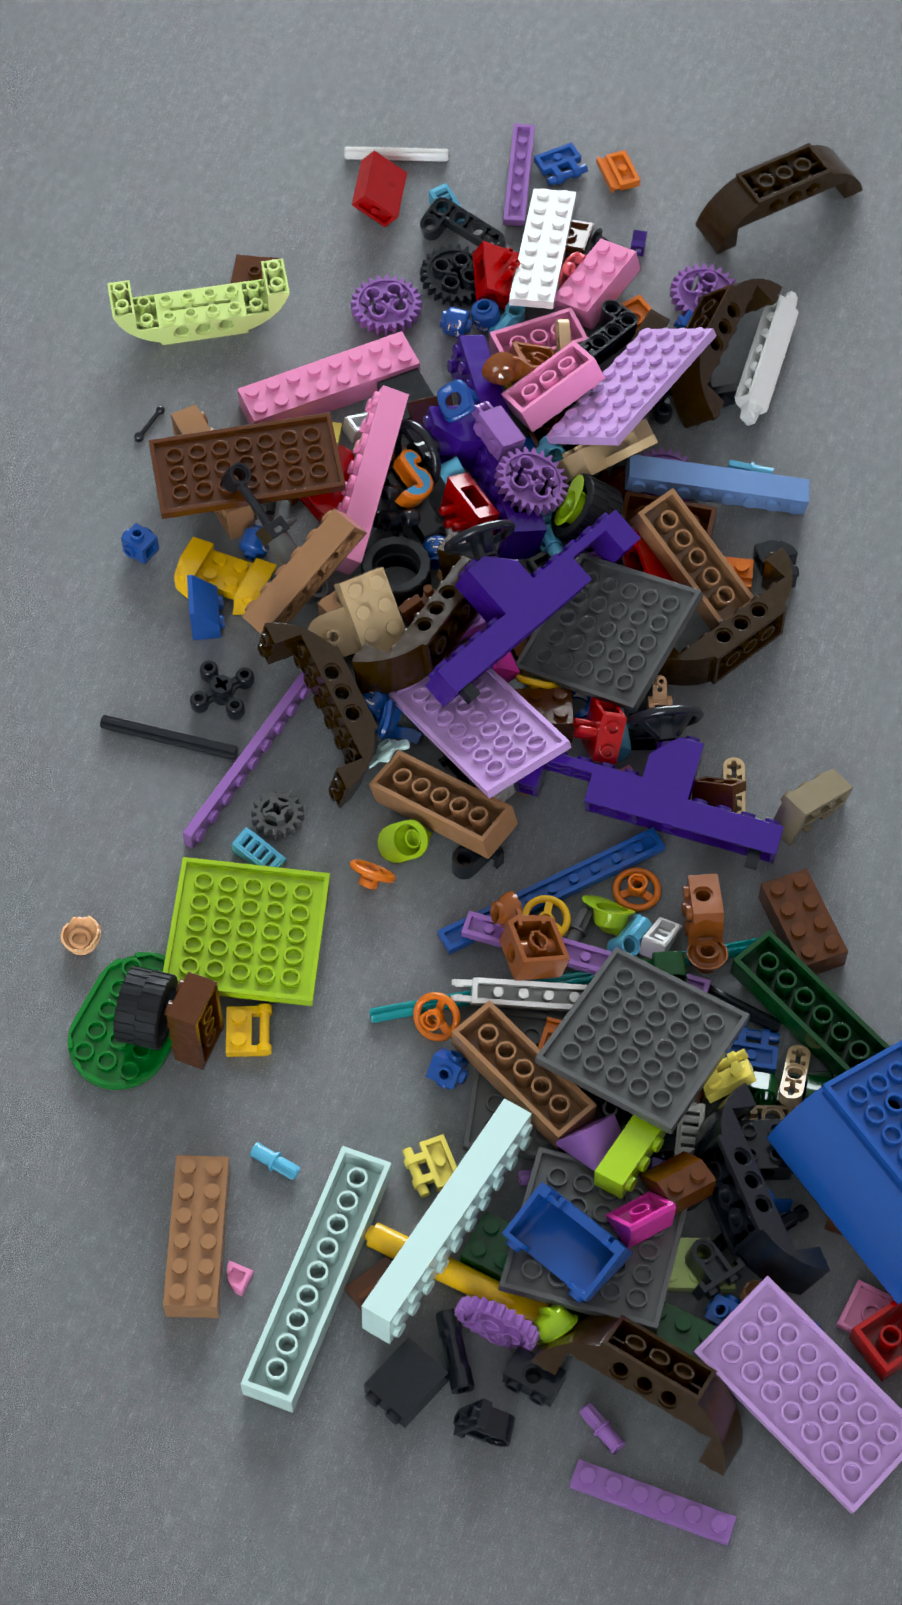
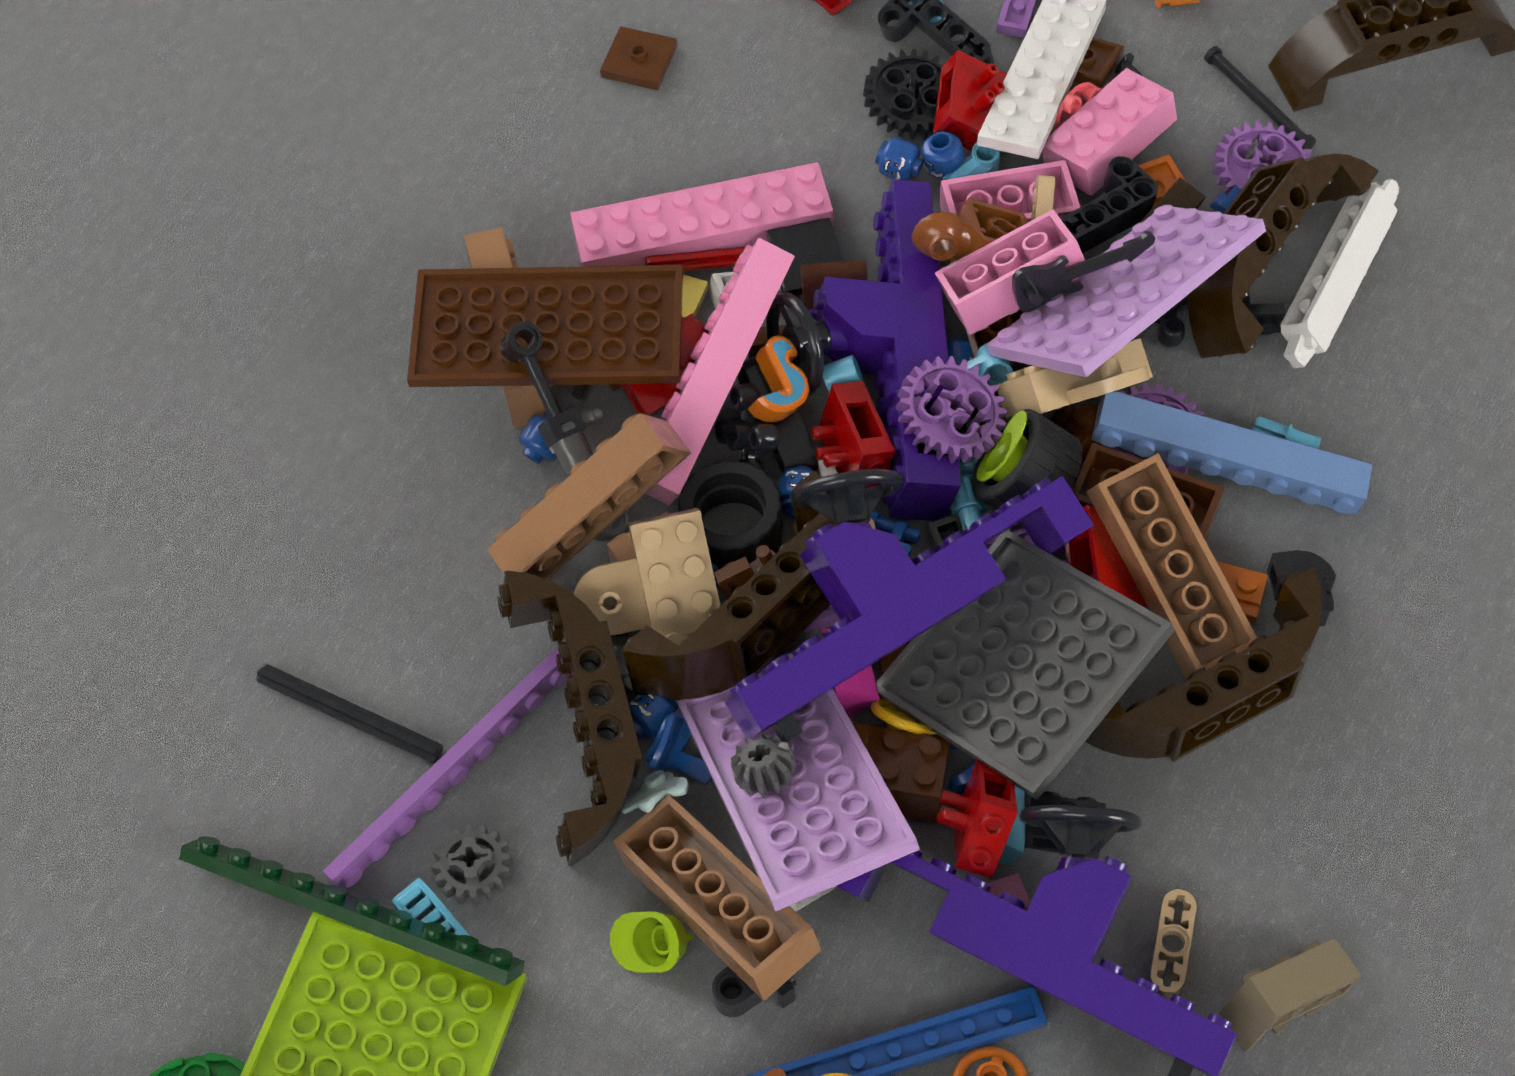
camera: 15 degrees right, 0 degrees up
(81, 935) = (135, 1009): light nougat hair -> none
(139, 435) = (426, 260): black hinge -> none
(139, 543) = (381, 415): blue brick -> none
(201, 311) = (545, 97): yellowish green slope -> none
(204, 609) = (444, 526): blue slope -> none
(216, 852) = (360, 913): none -> dark green plate
(222, 690) = (431, 624): black gear -> none
(232, 576) = (482, 476): yellow piece -> none
(338, 407) = (699, 259): none -> red axle
(371, 873) = (585, 989): orange piece -> none
(386, 304) = (808, 122): medium lavender gear -> none
(460, 716) = (763, 765): none -> dark grey gear
(467, 404) = (878, 281): blue piece -> none
(497, 430) = (915, 325): medium lavender brick -> none
(573, 391) = (1038, 284): none -> black piece
(639, 242) = (1182, 80): dark purple piece -> none
(658, 223) = (1215, 57): none -> black bar
(659, 698) = (1083, 774): light nougat piece -> none
(718, 791) = (1144, 947): reddish brown panel -> none

